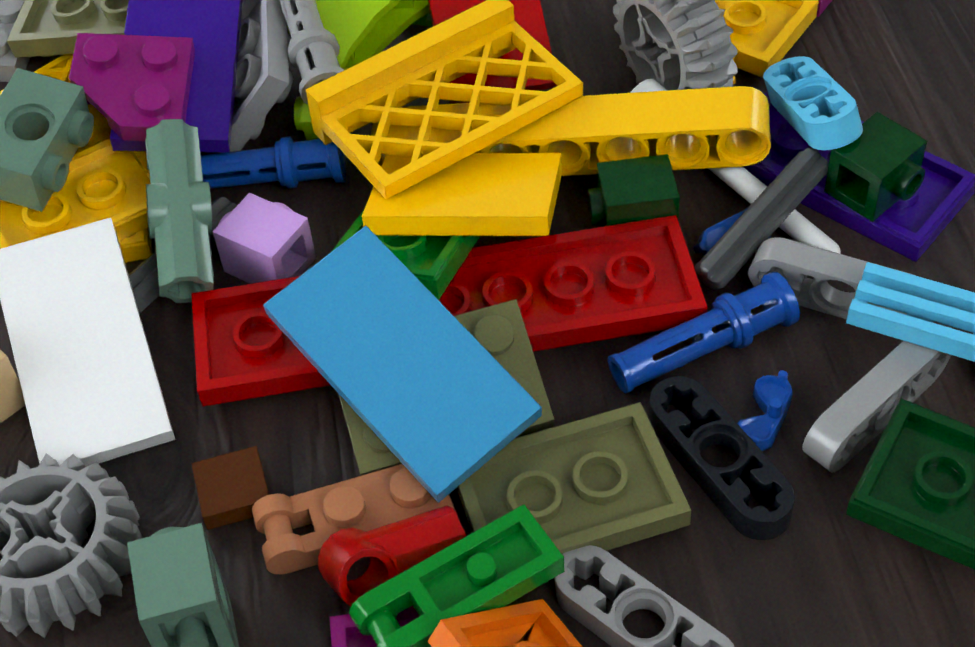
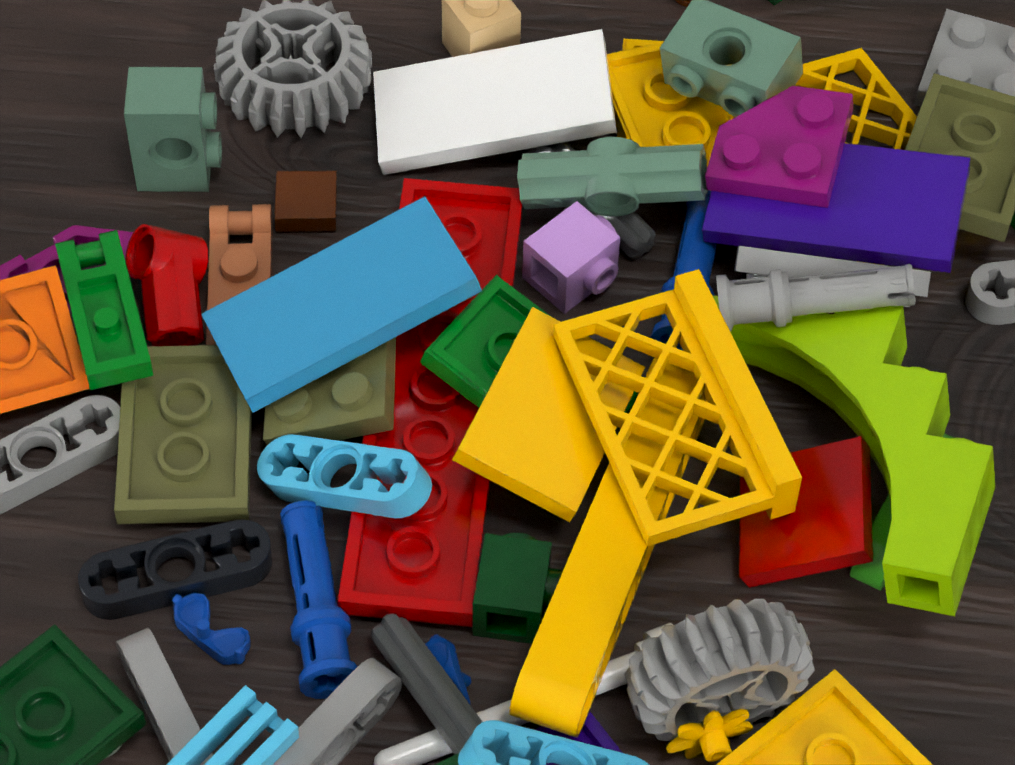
camera: 100 degrees right, 5 degrees up
(605, 286) = (362, 493): none -> medium azure beam

